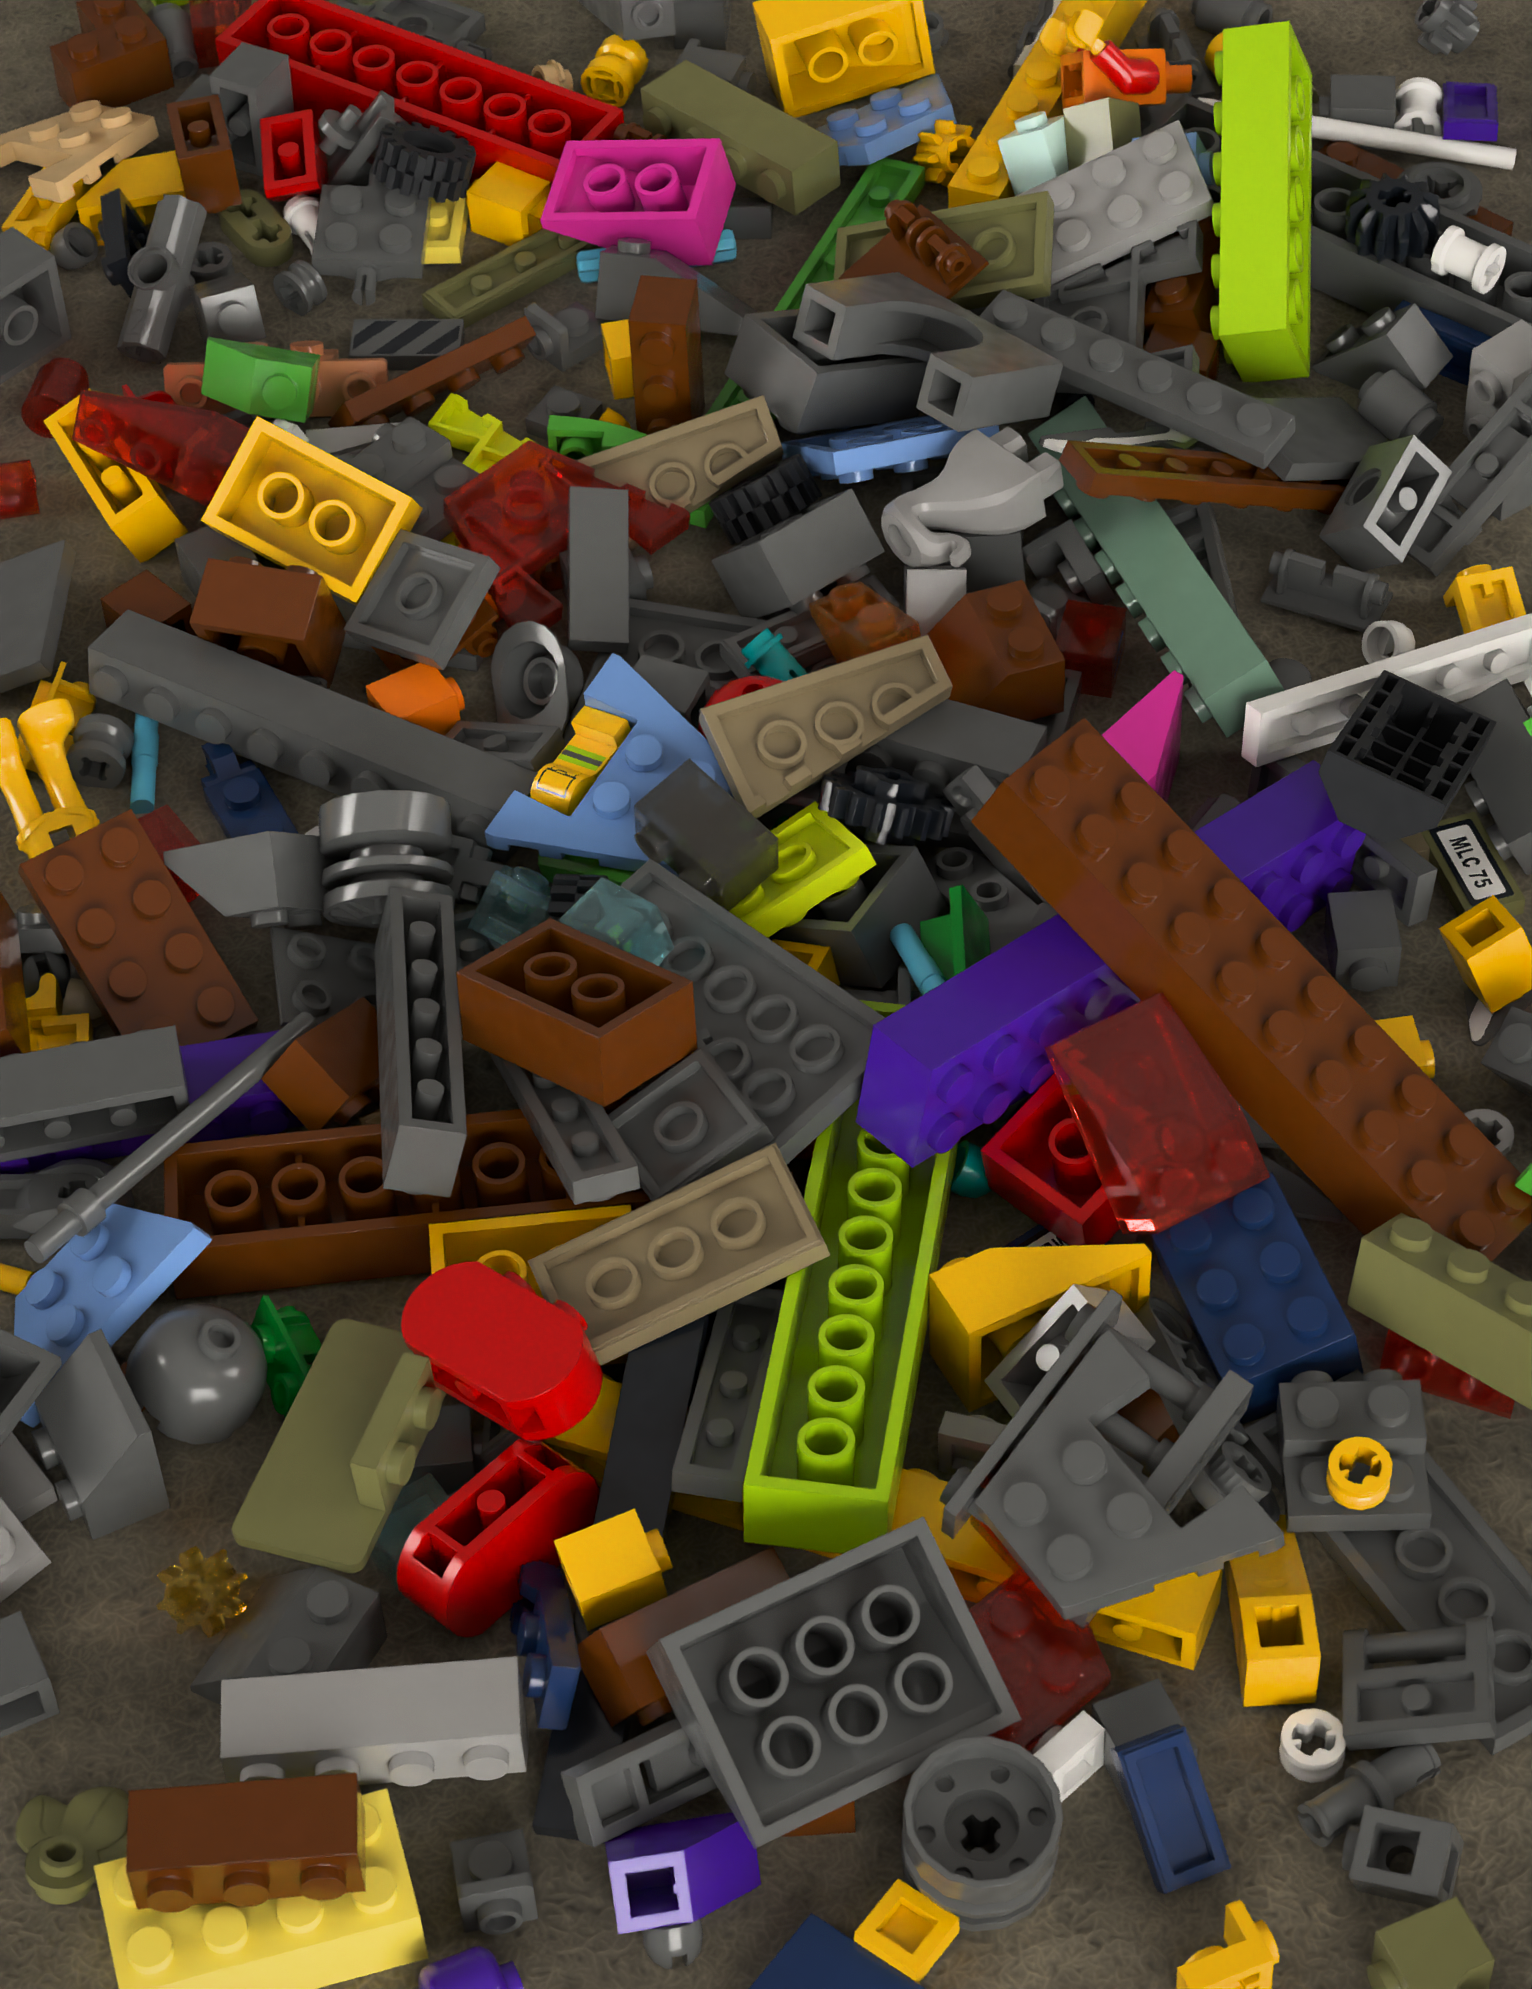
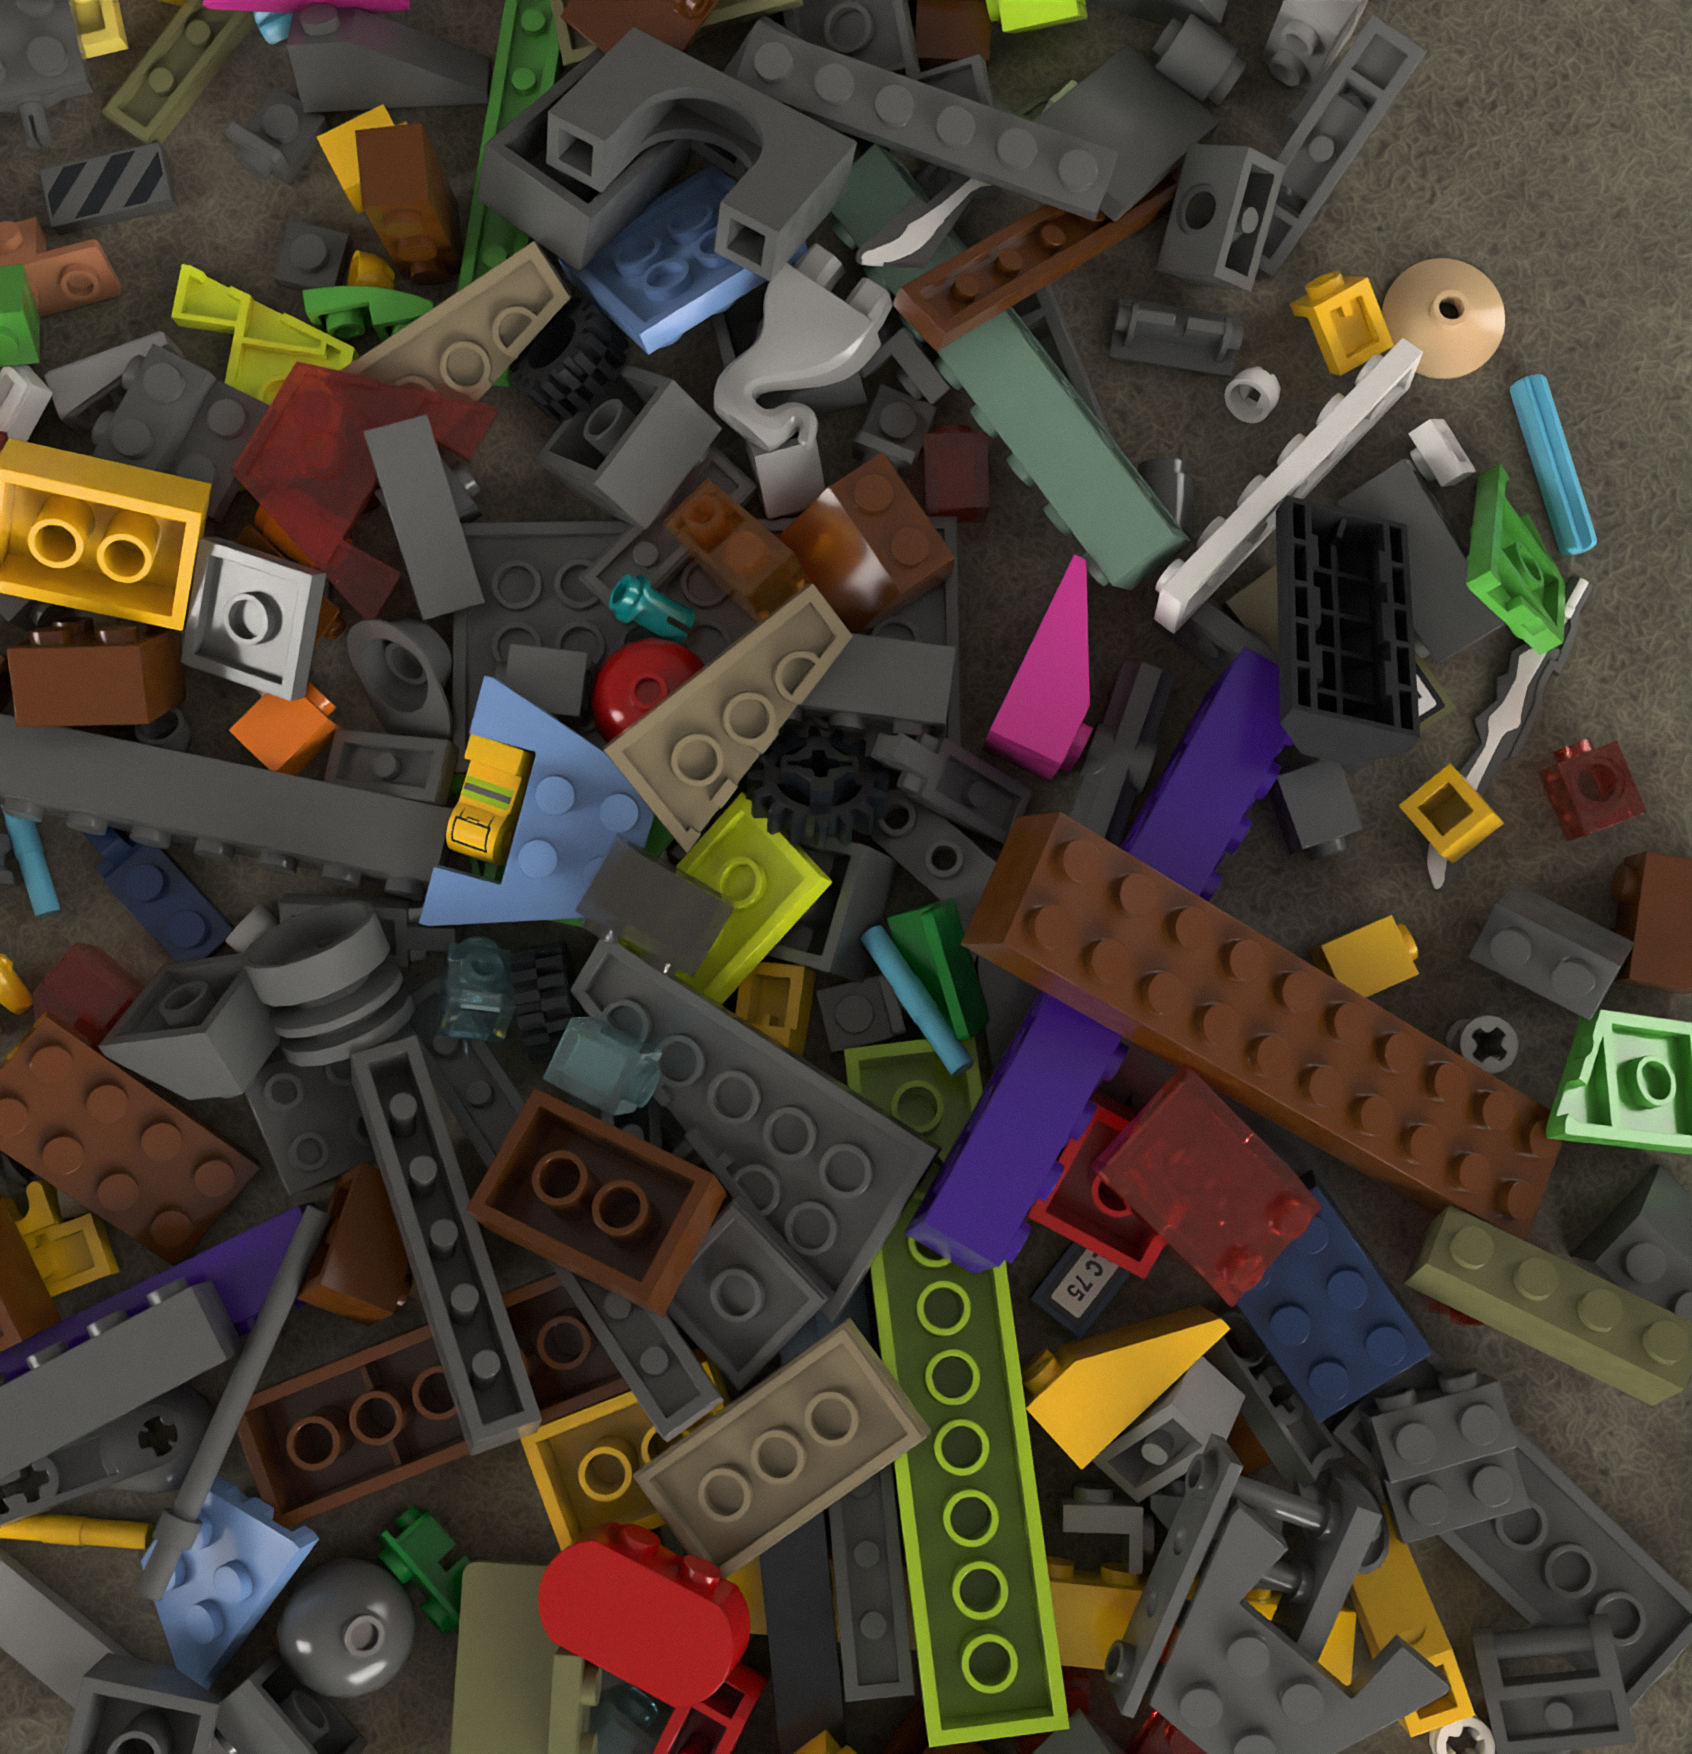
camera: 15 degrees left, 35 degrees up
(453, 371) = (175, 233): reddish brown plate -> none
(1344, 1458) = (1481, 1523): yellow bush -> none

